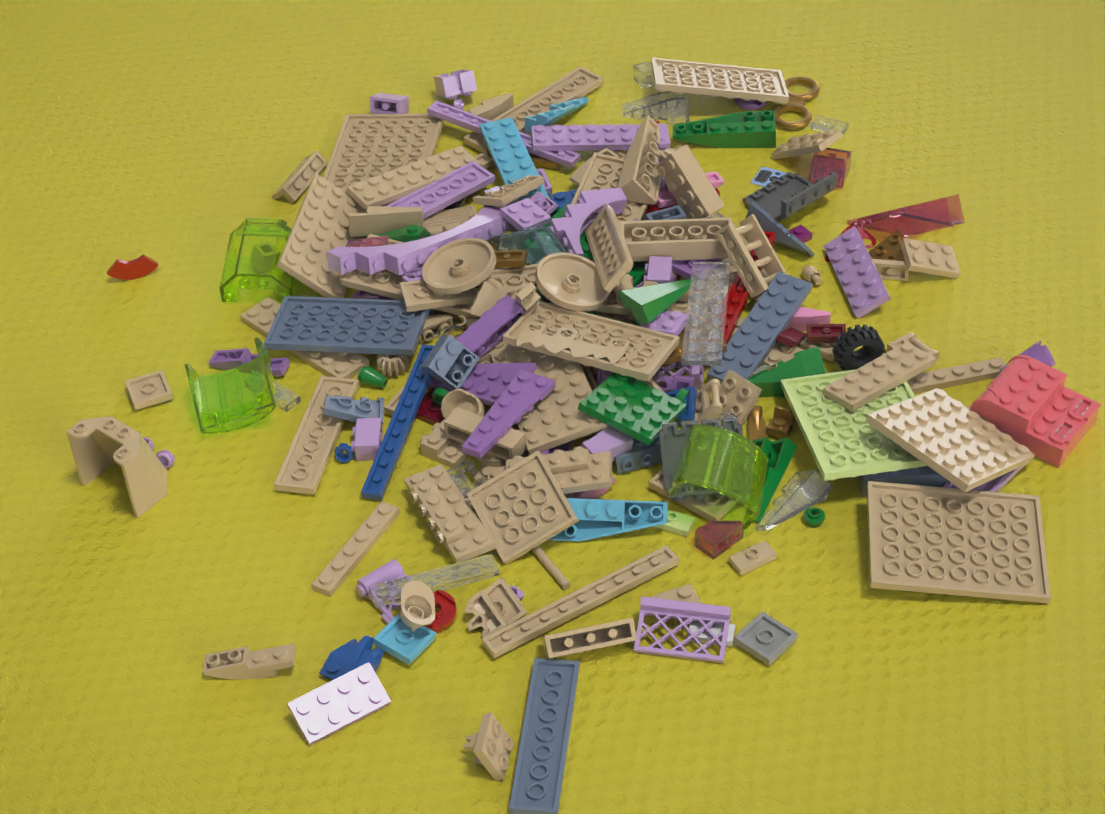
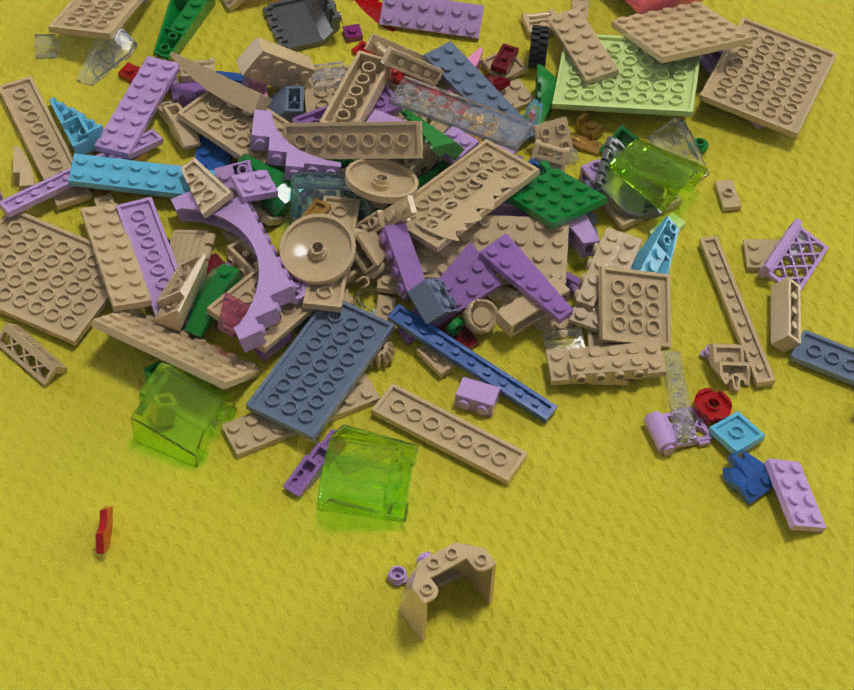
camera: 75 degrees left, 10 degrees up
(149, 389) = (314, 554): tan plate -> none
(244, 664) = (725, 546): tan slope -> none
(340, 456) = (485, 420): blue plate -> none
(351, 410) = (438, 392): sand blue wing -> none
(355, 549) = (610, 443): tan plate -> none
(371, 377) = (390, 373): green cone -> none
(417, 605) = (722, 409): tan piece -> none
(441, 448) = (508, 349): tan plate -> none
(551, 567) = (691, 318): tan bar -> none
(718, 536) = (702, 207): slope -> none
(765, 638) = (816, 215): light grey plate -> none
(766, 176) = (255, 23): sticker -> none
(783, 236) = (340, 43): sand blue wedge -> none
(811, 274) = (413, 43): tan cylinder -> none

